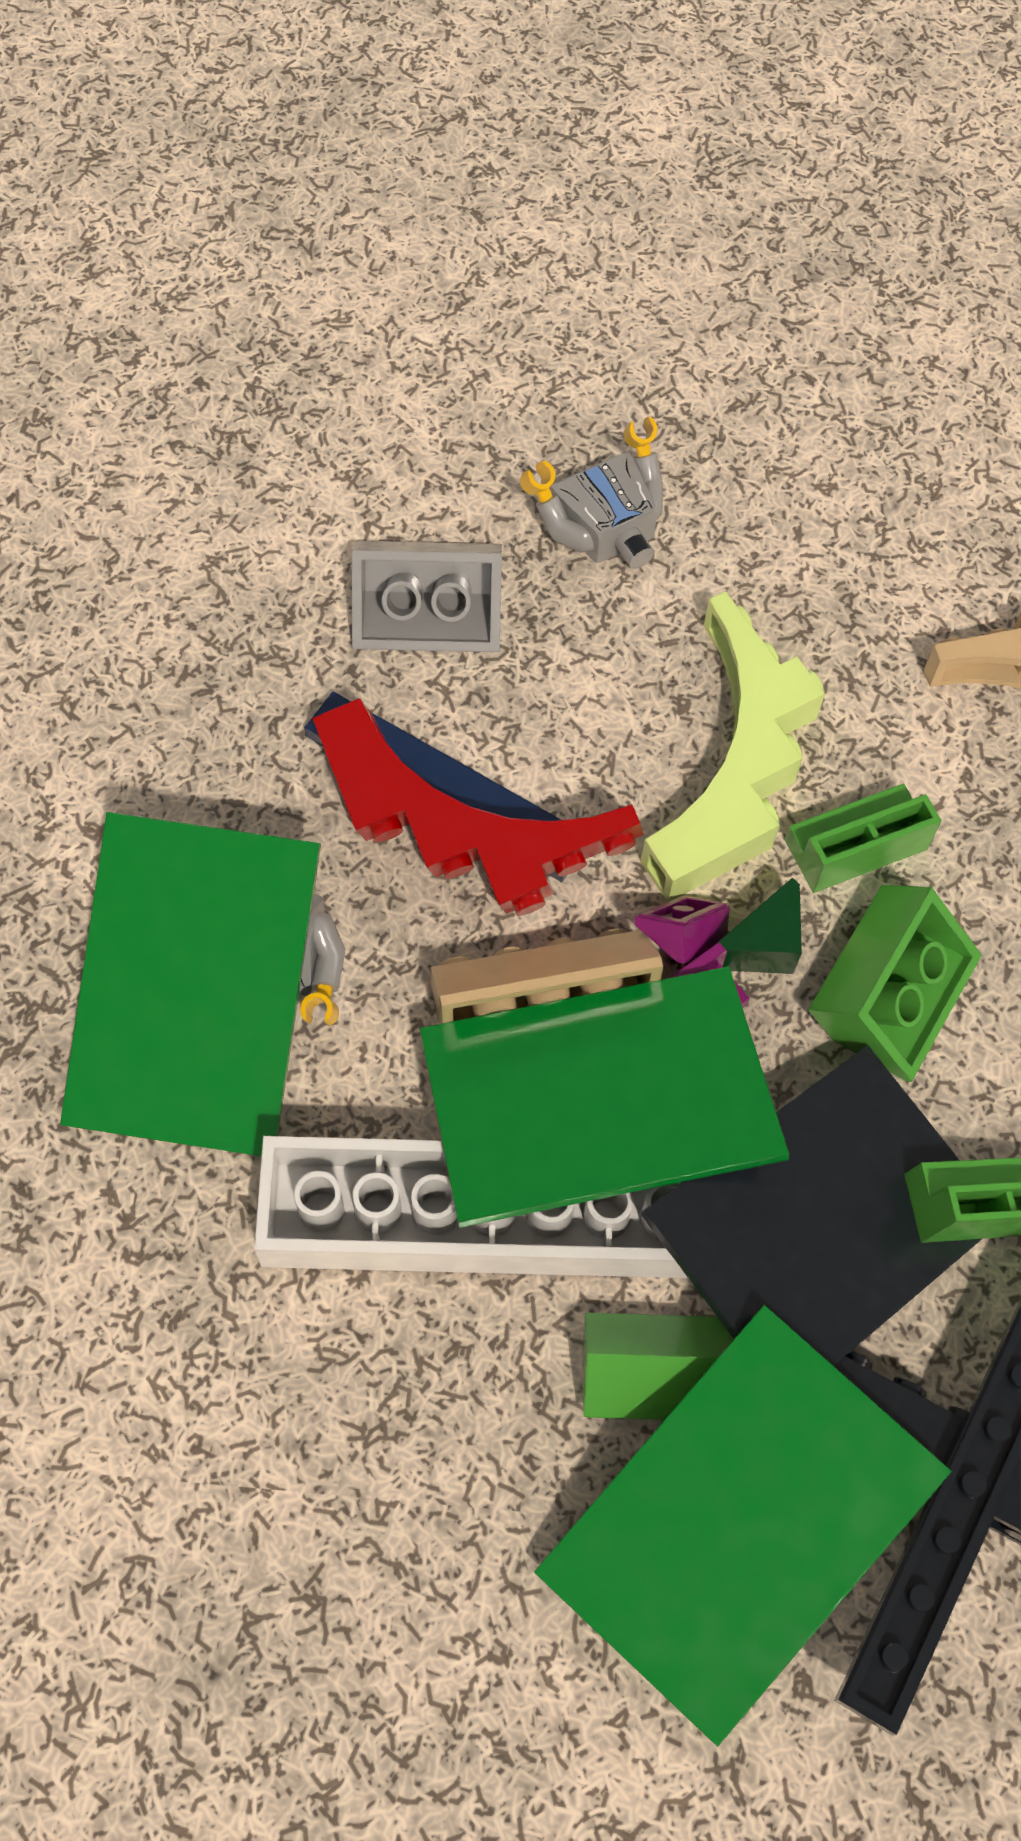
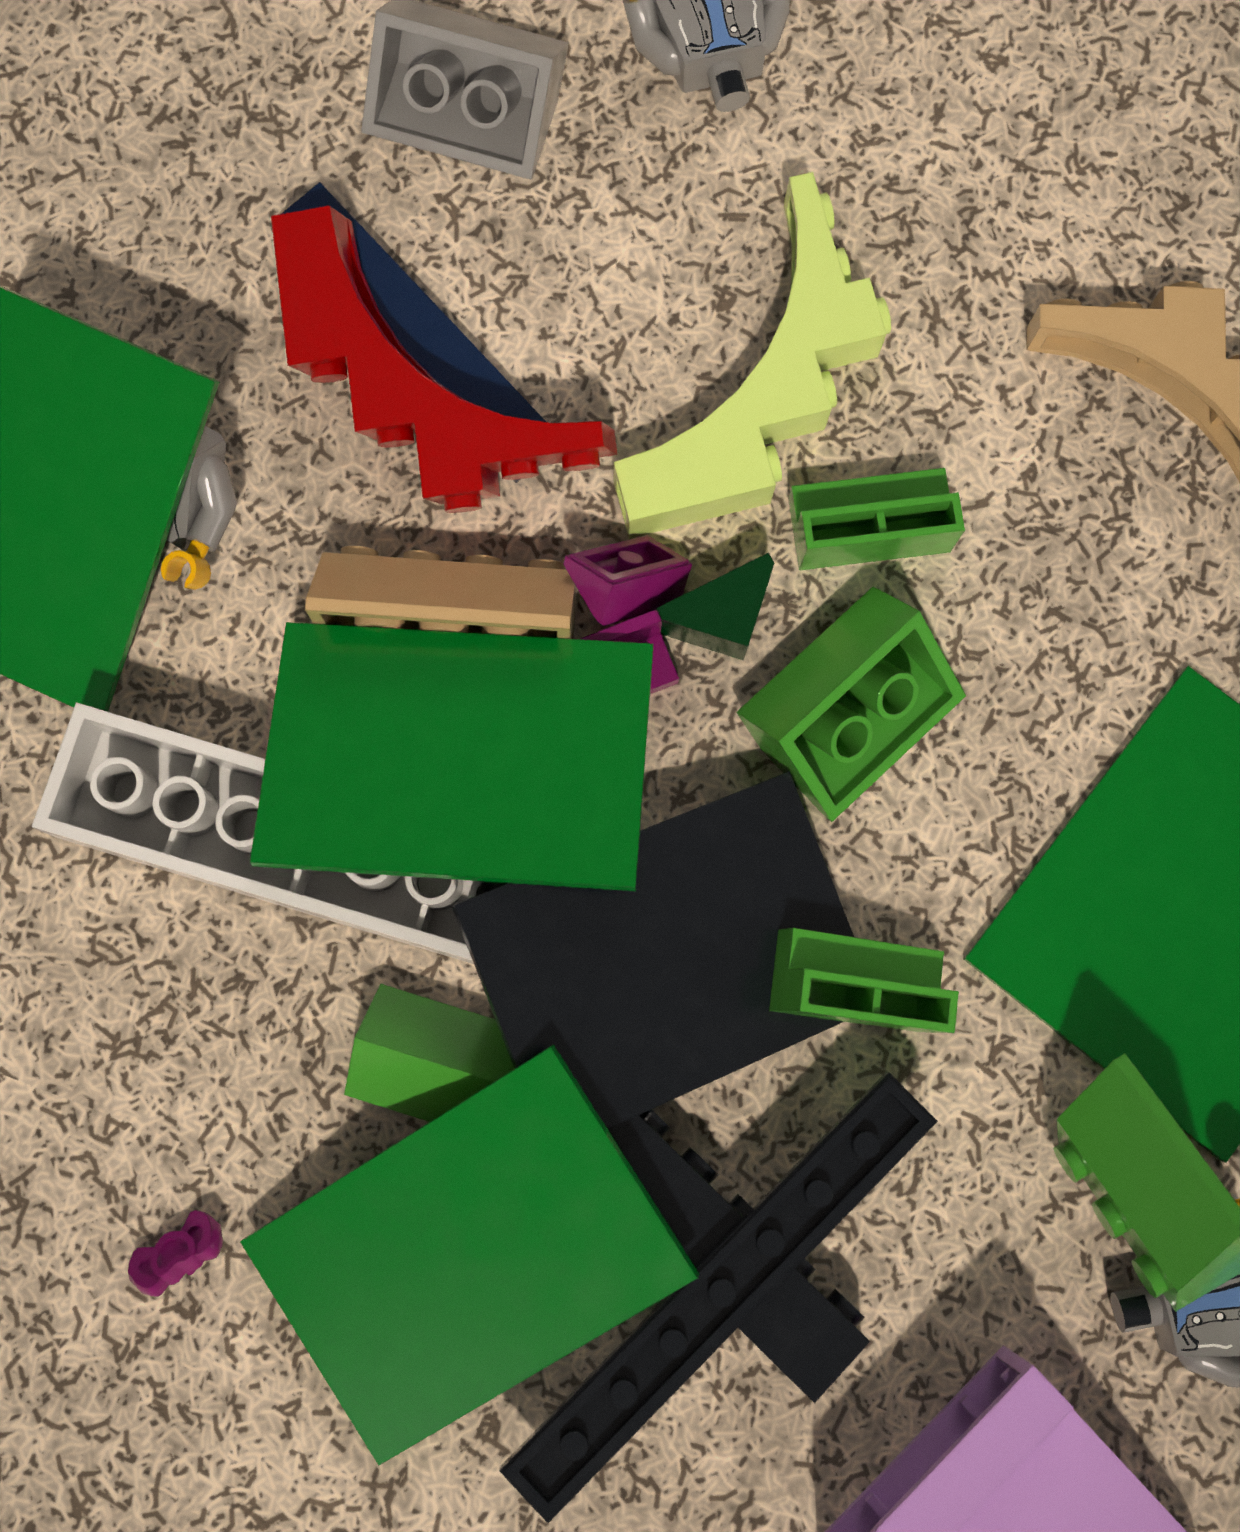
camera: 15 degrees right, 15 degrees up
(478, 1603) = (176, 1254): none -> magenta piece

